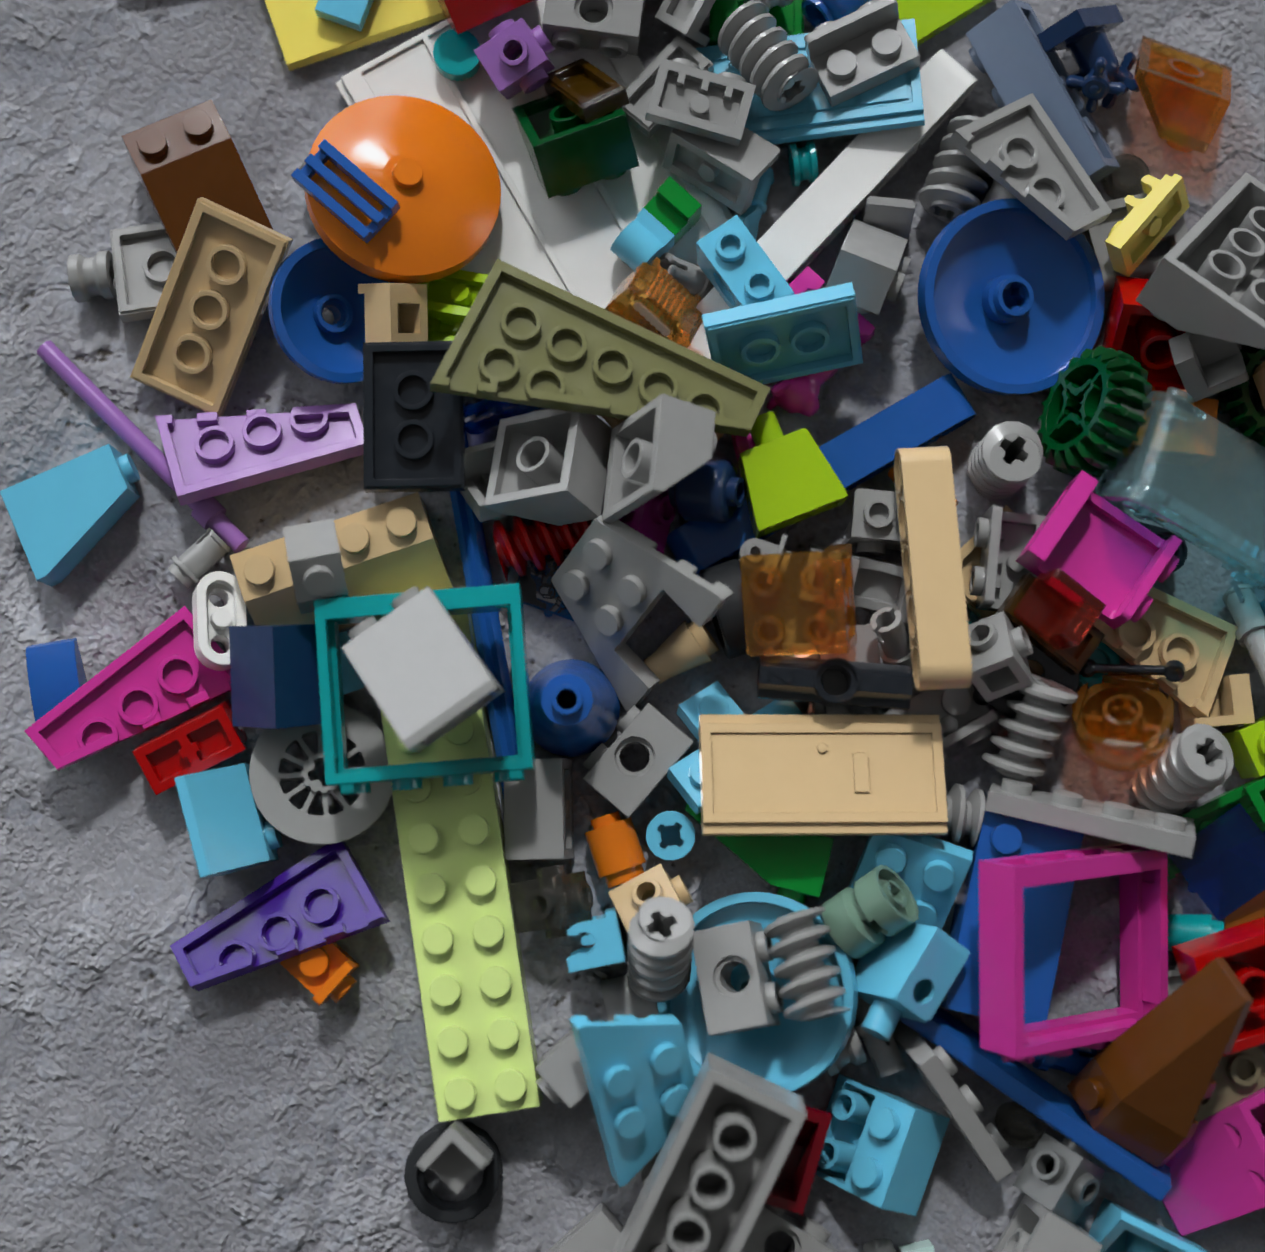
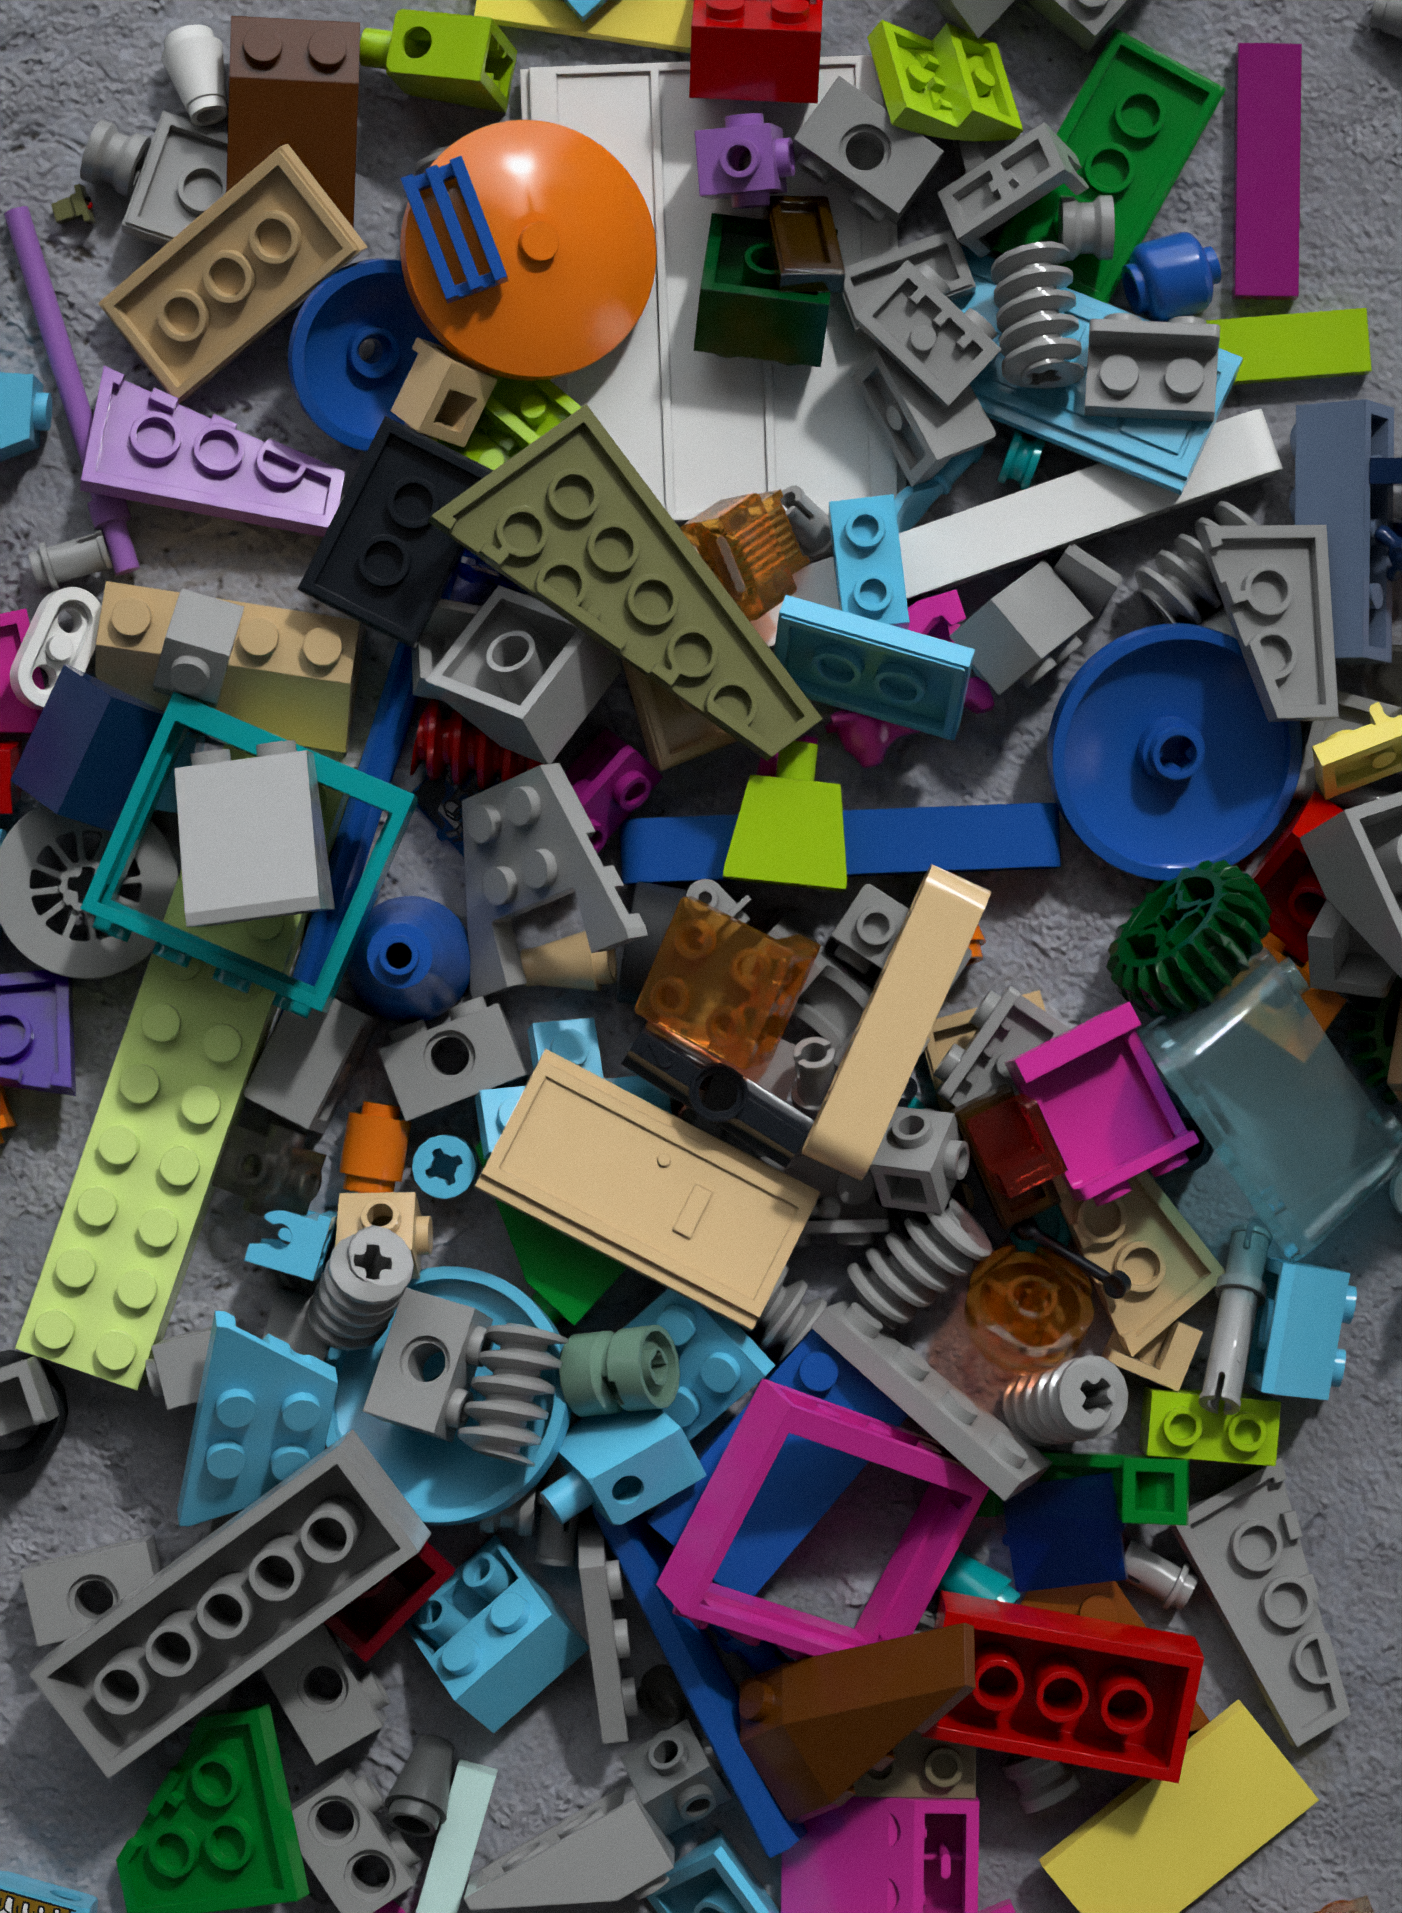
camera: 30 degrees right, 5 degrees up
(82, 325) = (74, 207): none -> olive piece
(118, 190) = (197, 71): none -> white cone
(280, 96) = (444, 57): none -> lime torso
(455, 55) = (677, 117): teal tile -> none
(655, 451) = (645, 729): light grey slope -> none
(657, 225) = (802, 450): leg -> none
(709, 492) = (691, 795): dark blue head -> none
(1021, 450) = (1081, 949): light grey piece -> none

